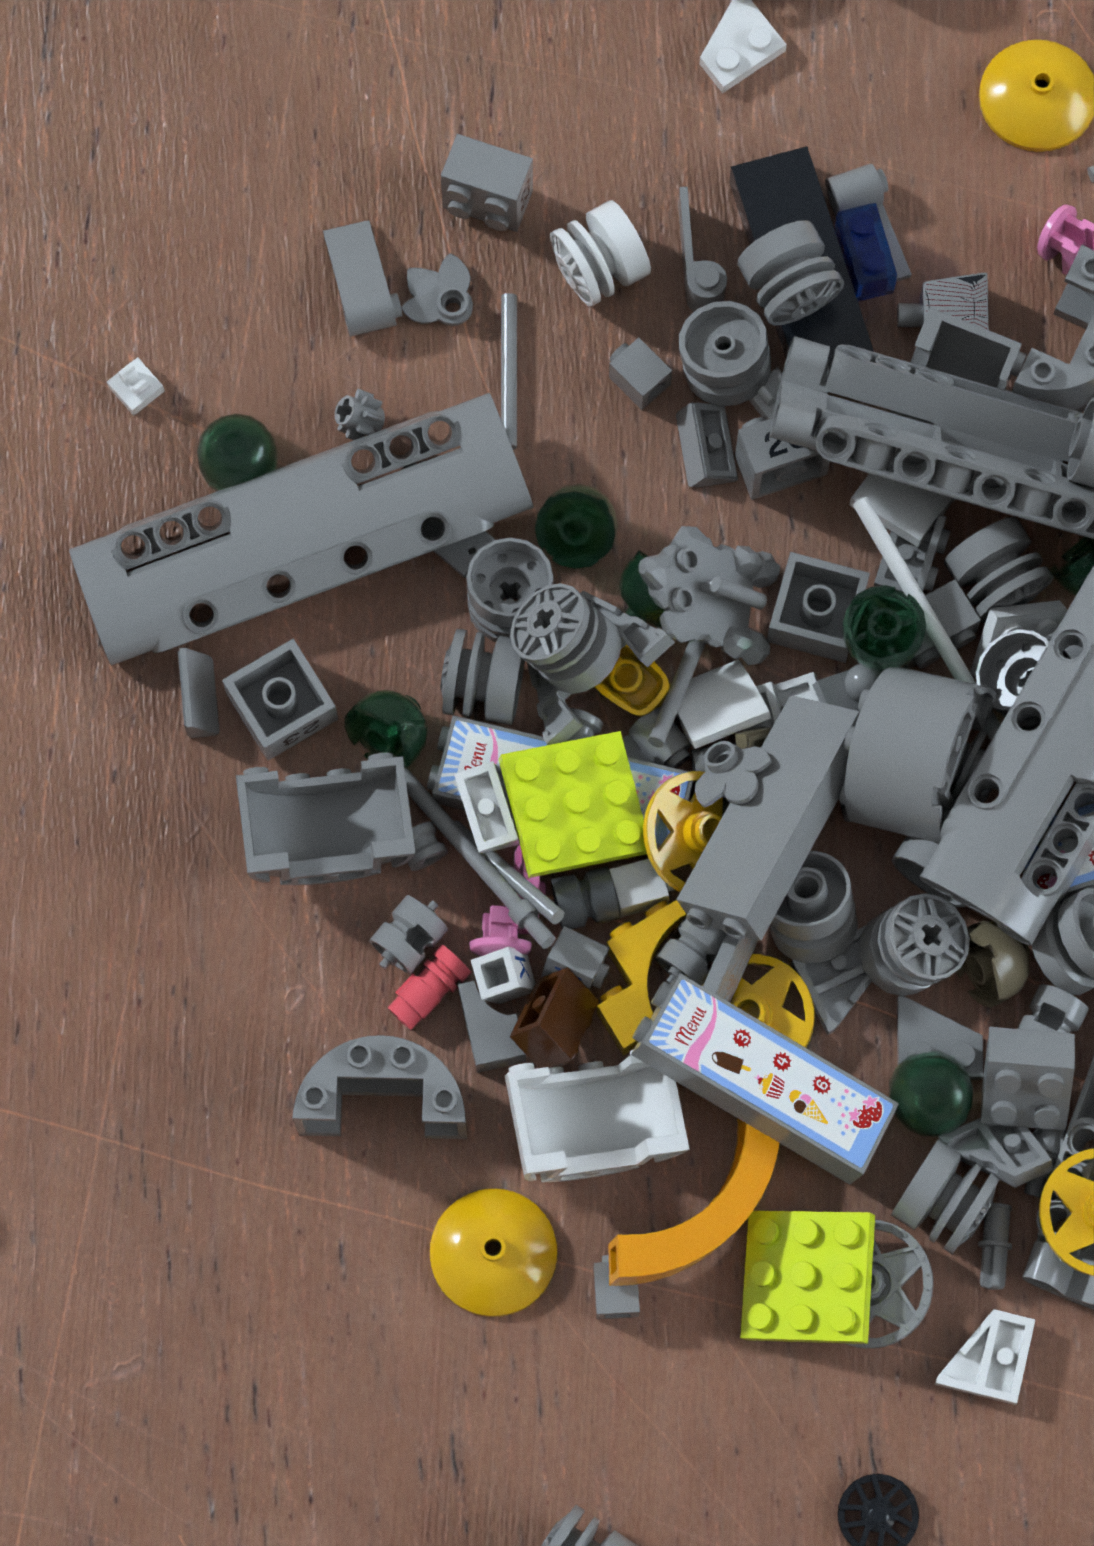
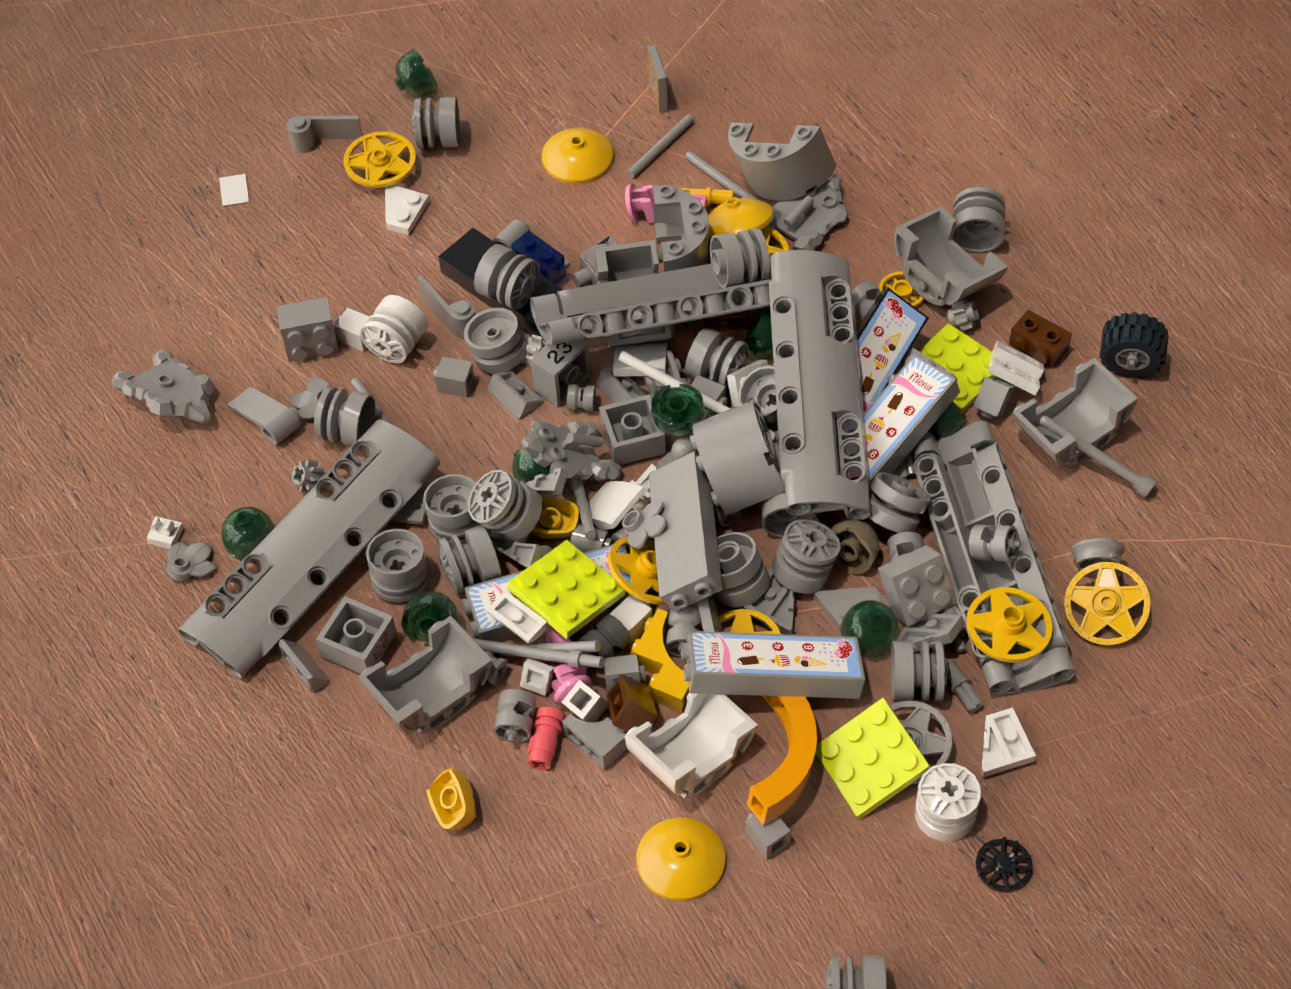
camera: 30 degrees left, 20 degrees down
(148, 446) = (189, 561): none -> light grey plate
(257, 167) = (169, 388): none -> light grey shield
(263, 1002) = (452, 800): none -> yellow piece
(379, 1068) = (555, 785): light grey cylinder -> none
(392, 606) = (397, 565): none -> light grey wheel
(454, 355) = (343, 415): none -> light grey wheel
(470, 895) = (536, 676): none -> white tile
(550, 209) = (349, 327): none -> white brick
(577, 526) = (471, 456): clear green cylinder -> none
(786, 510) = (581, 397): none -> light grey wheel
(835, 1405) = (947, 802): none -> white wheel
(847, 536) = (618, 387): none -> light grey slope

